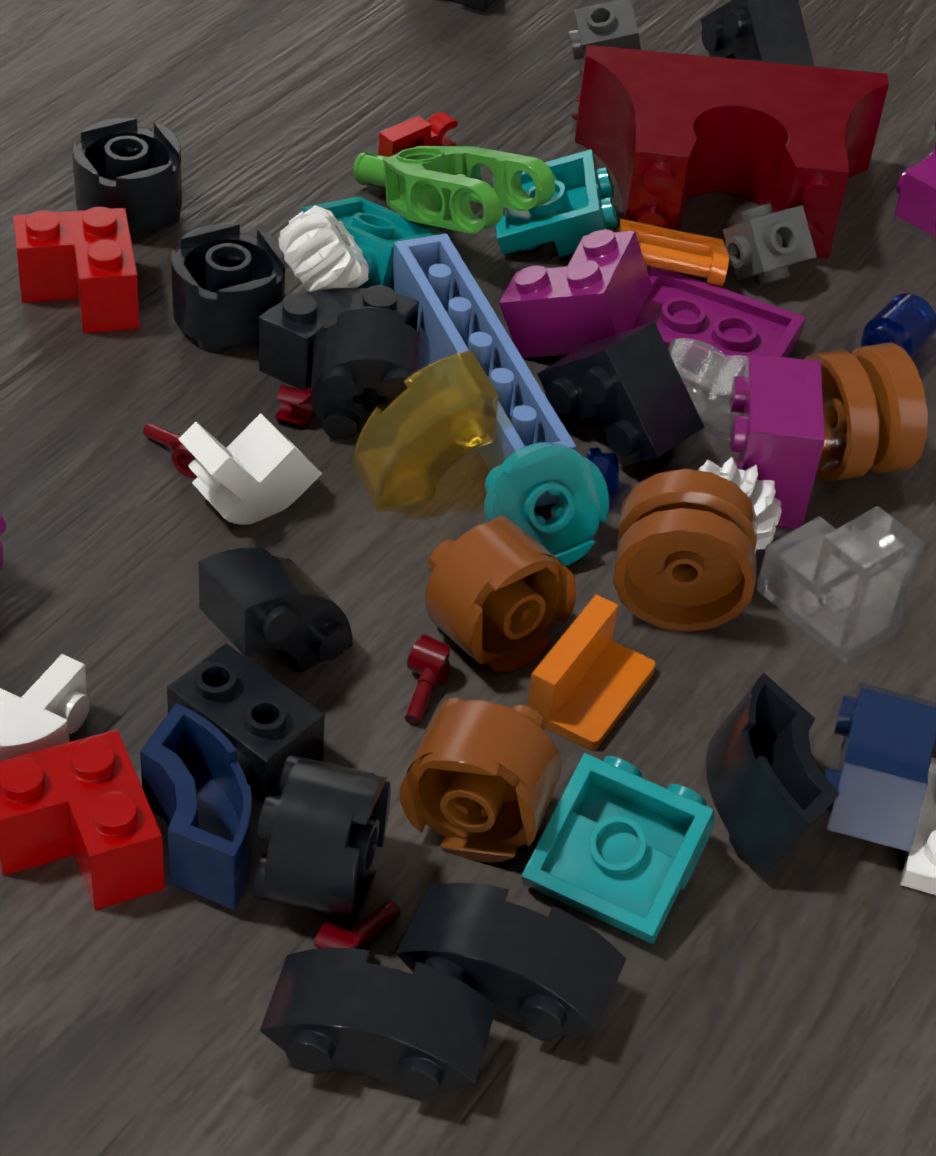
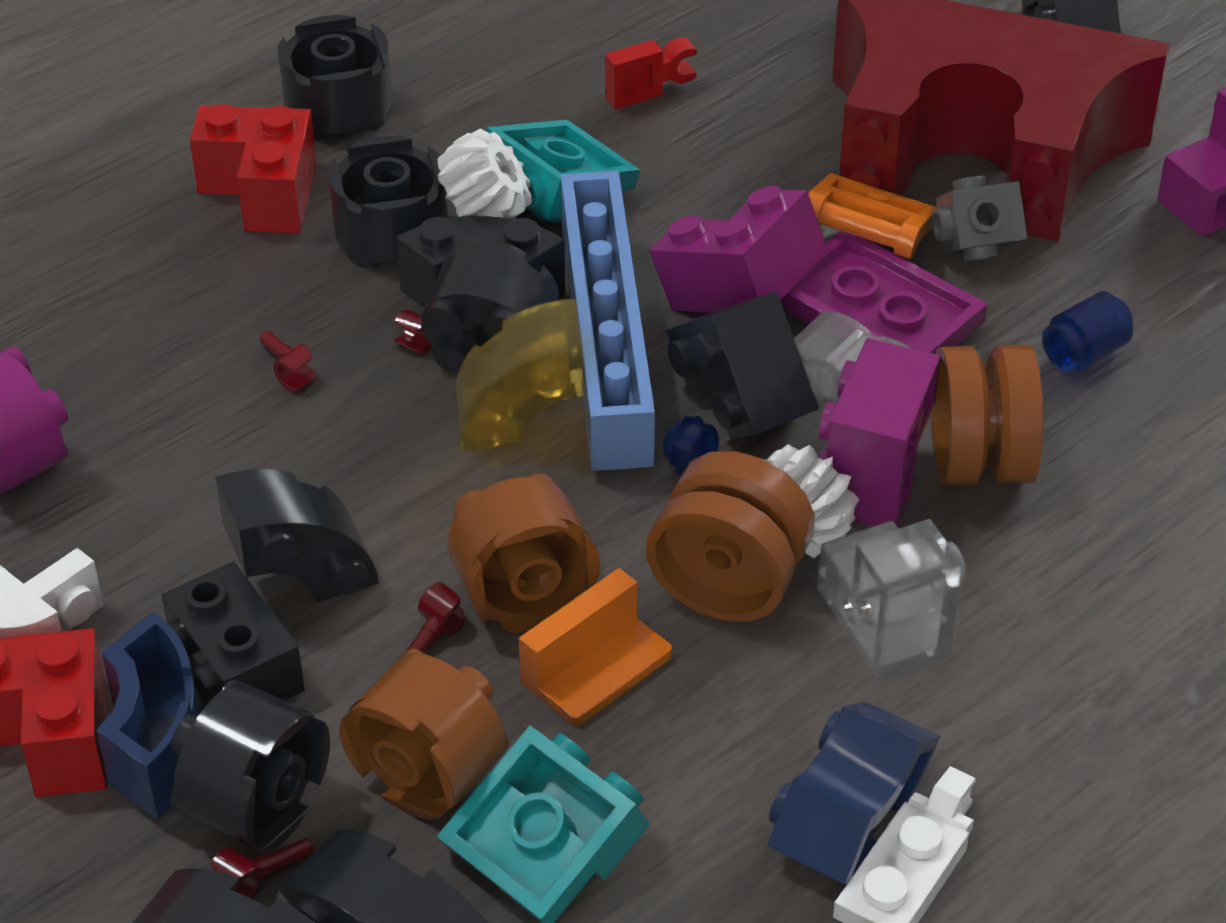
camera: 20 degrees right, 0 degrees up
(251, 476) = (340, 398): white brick -> none
(448, 178) = (647, 115): bright green piece -> none
(558, 471) = (629, 437): teal plate -> none
(576, 209) = (766, 147): teal plate -> none
(766, 774) = (716, 780): black brick -> none

